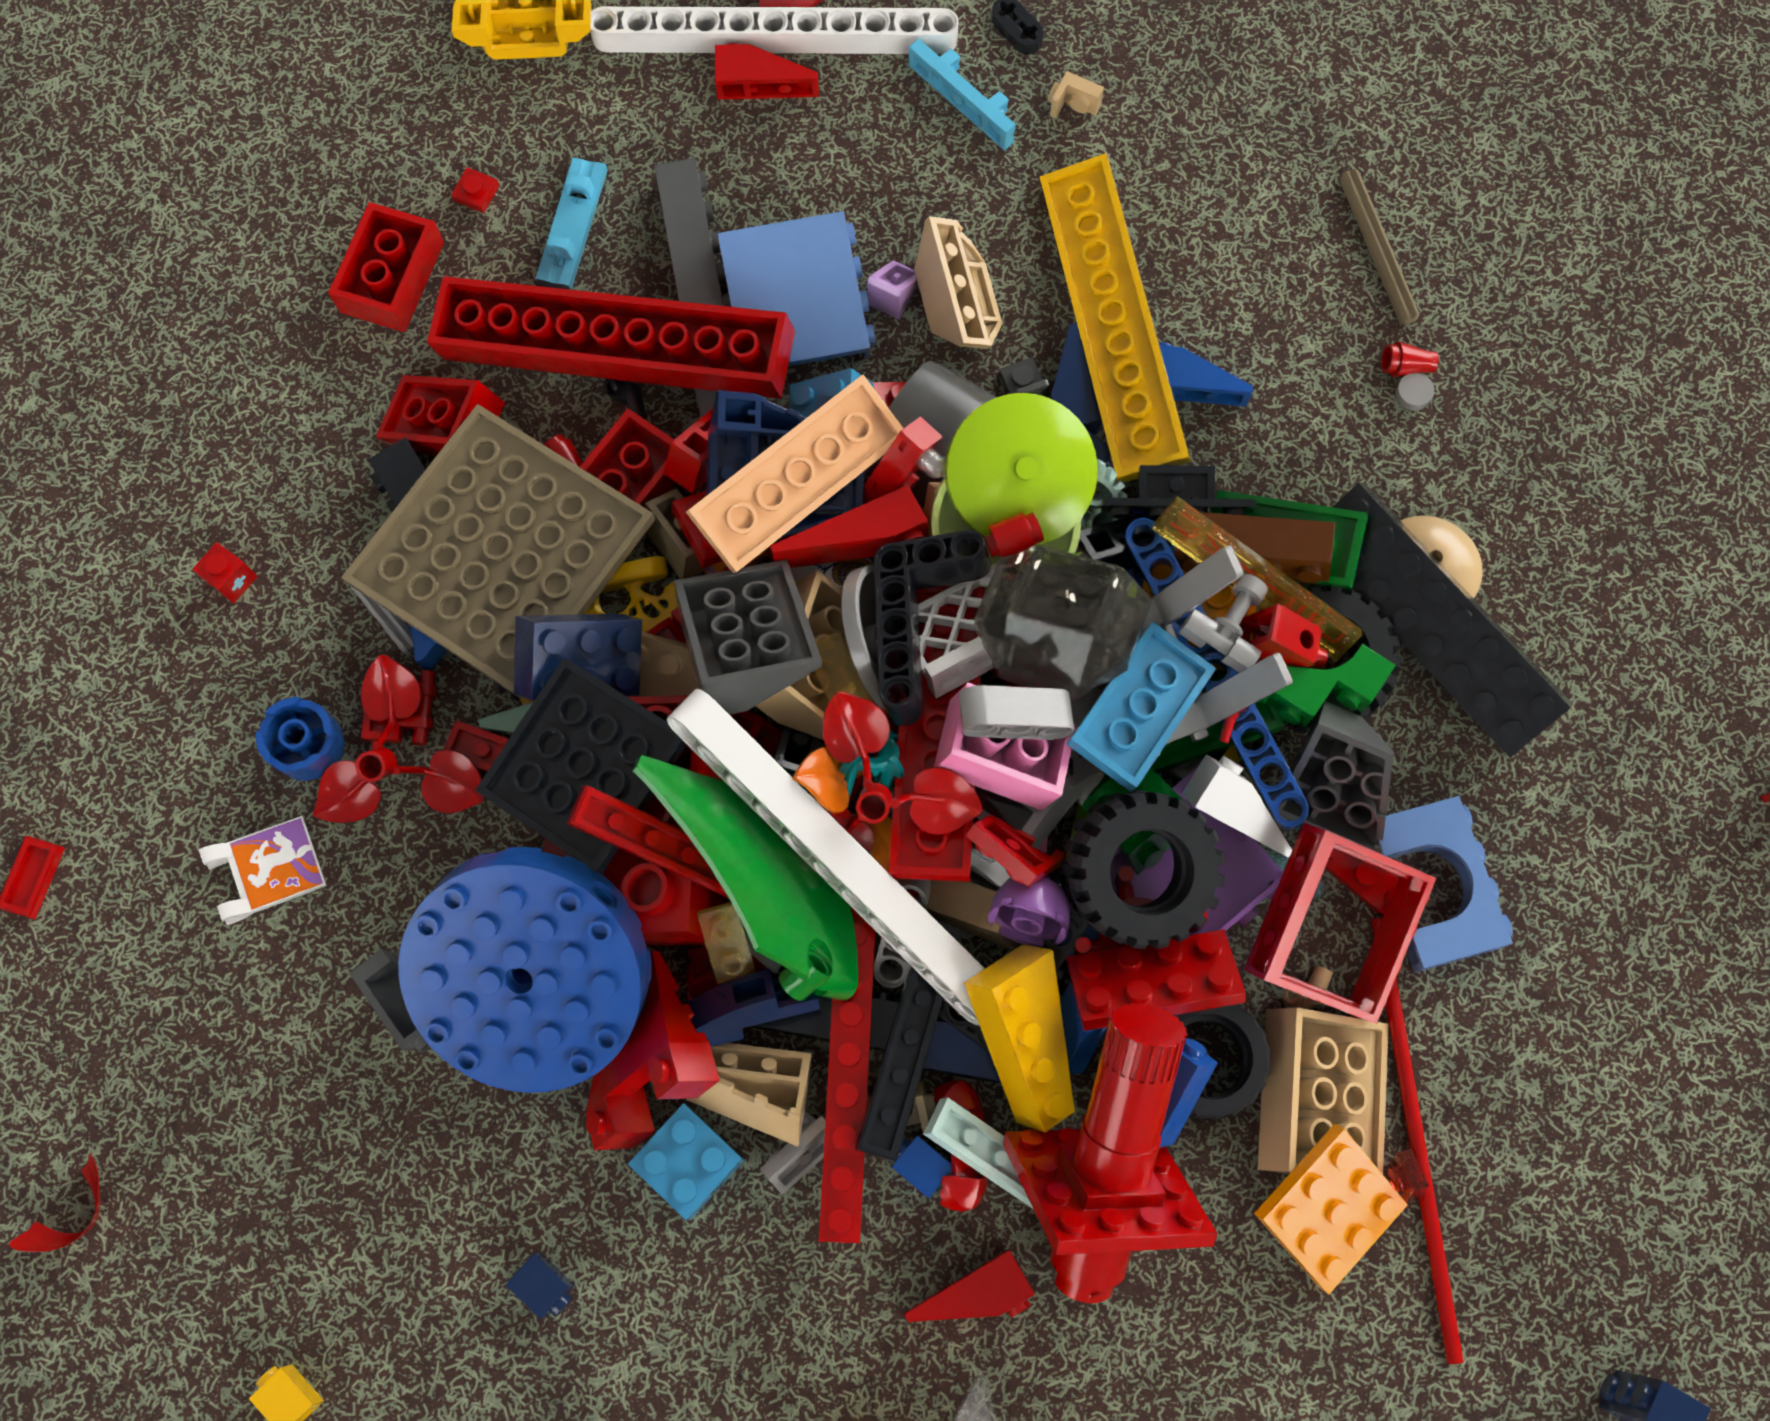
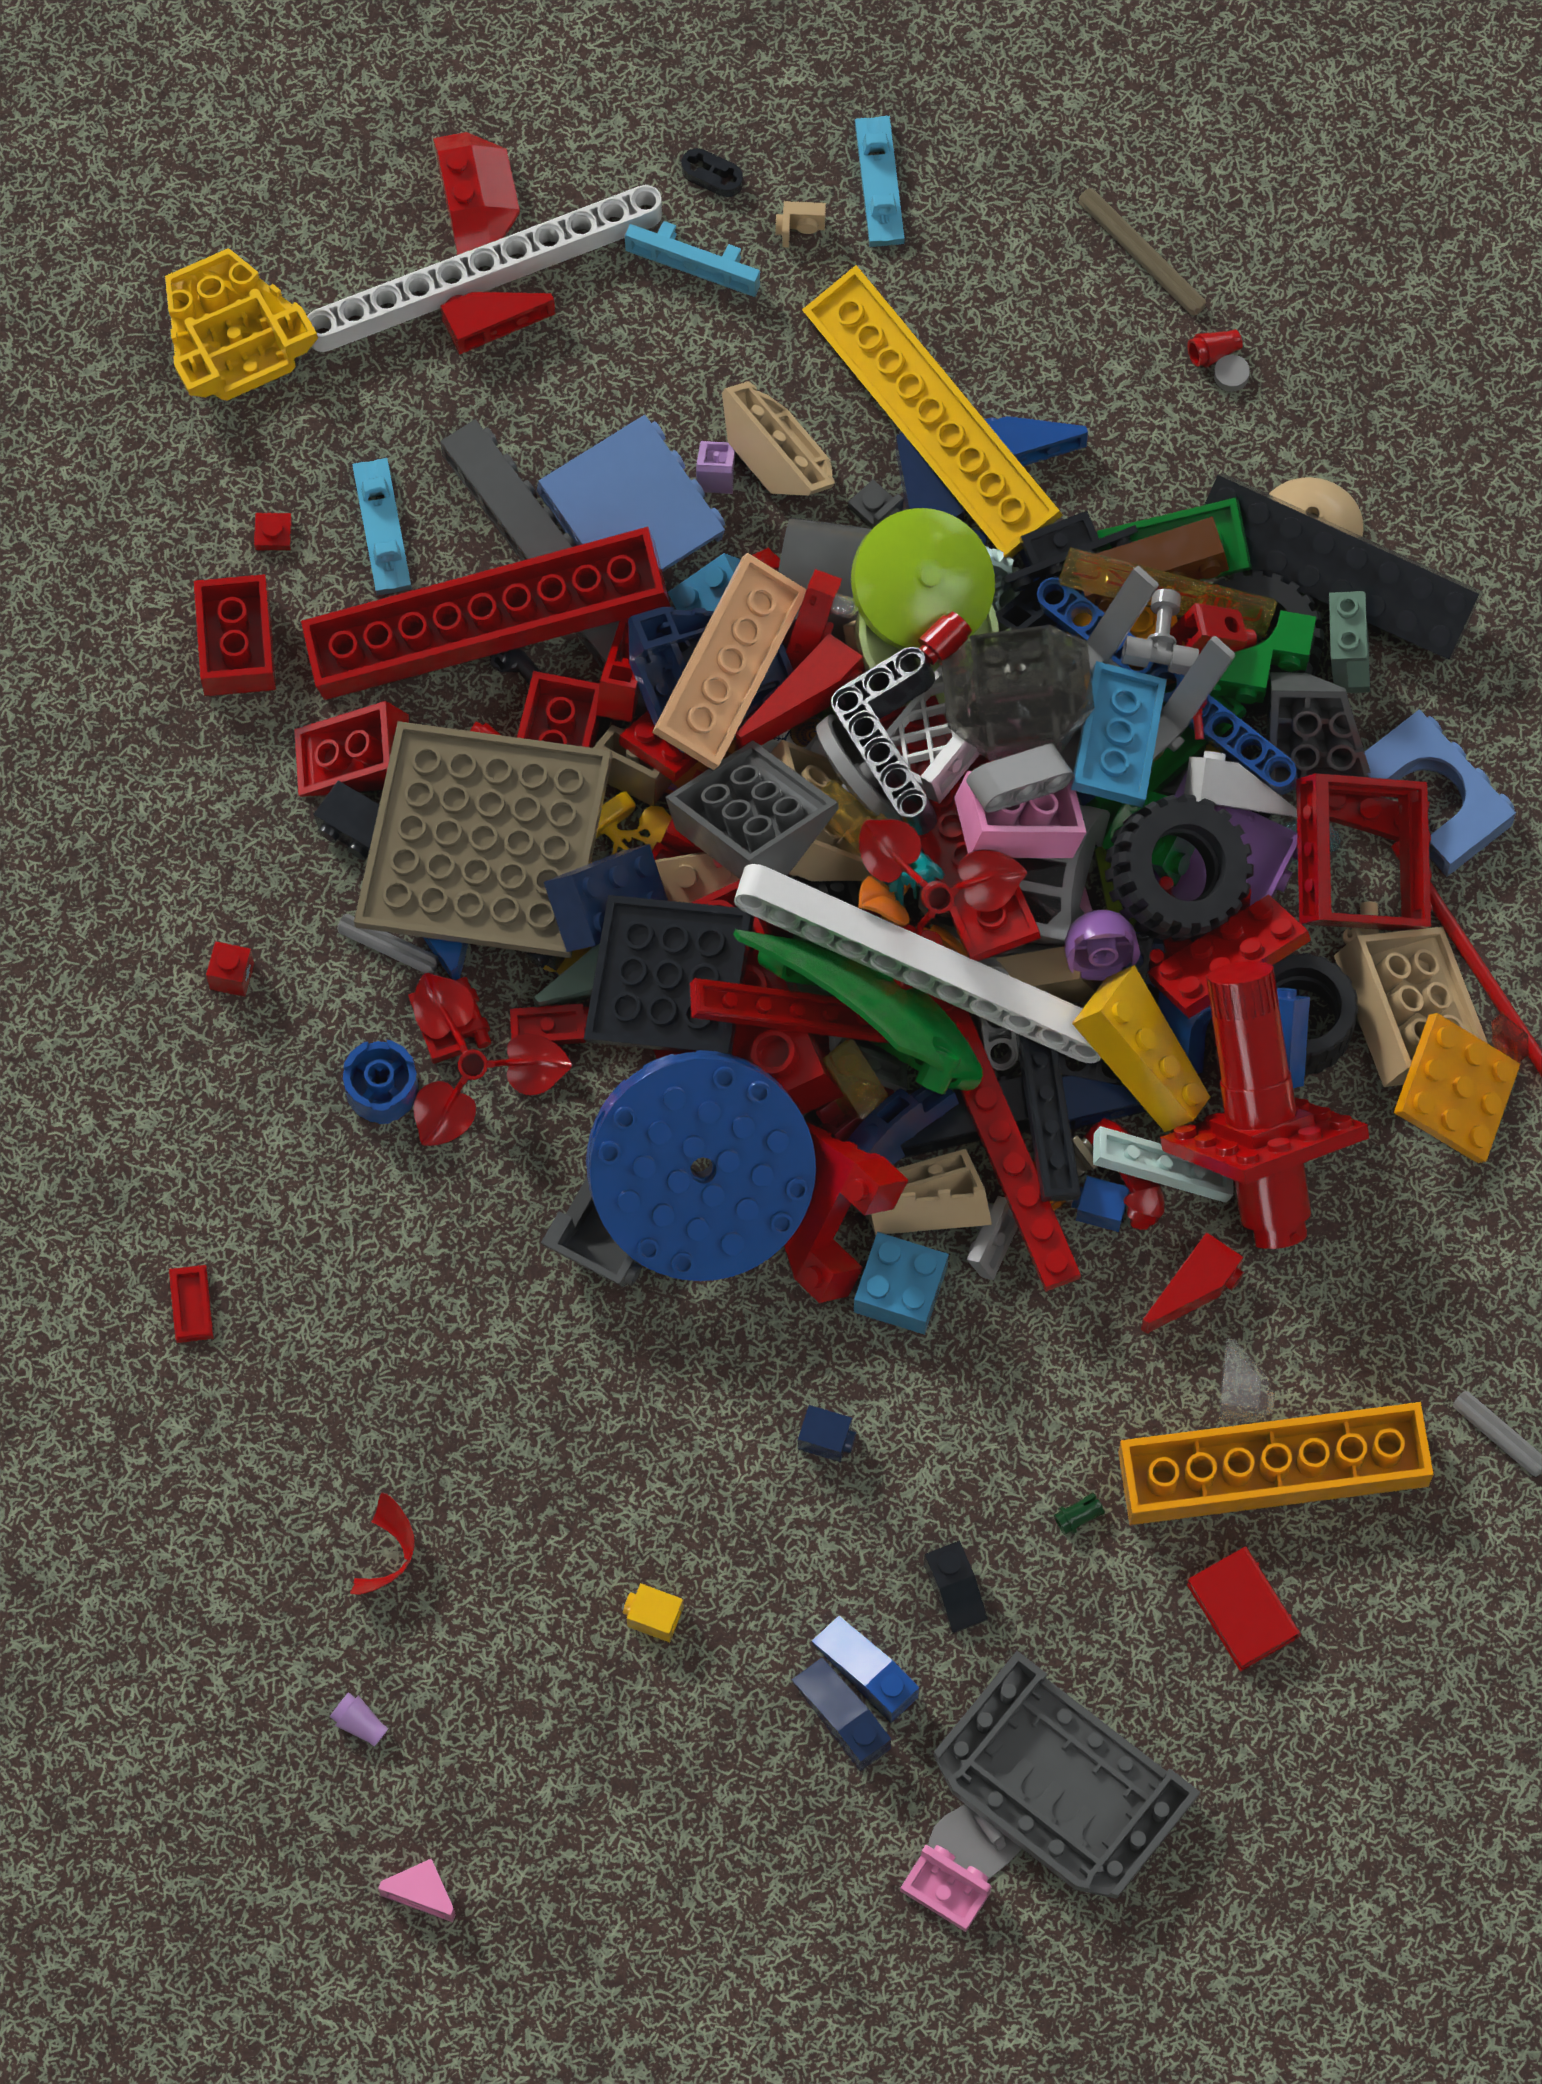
camera: 25 degrees left, 5 degrees down
(267, 868) = (404, 1205): flag -> none
(1013, 850) = (1065, 895): red wing -> none
(1164, 91) = (879, 181): none -> medium azure hinge
(1418, 699) = (1349, 641): none -> sand green panel

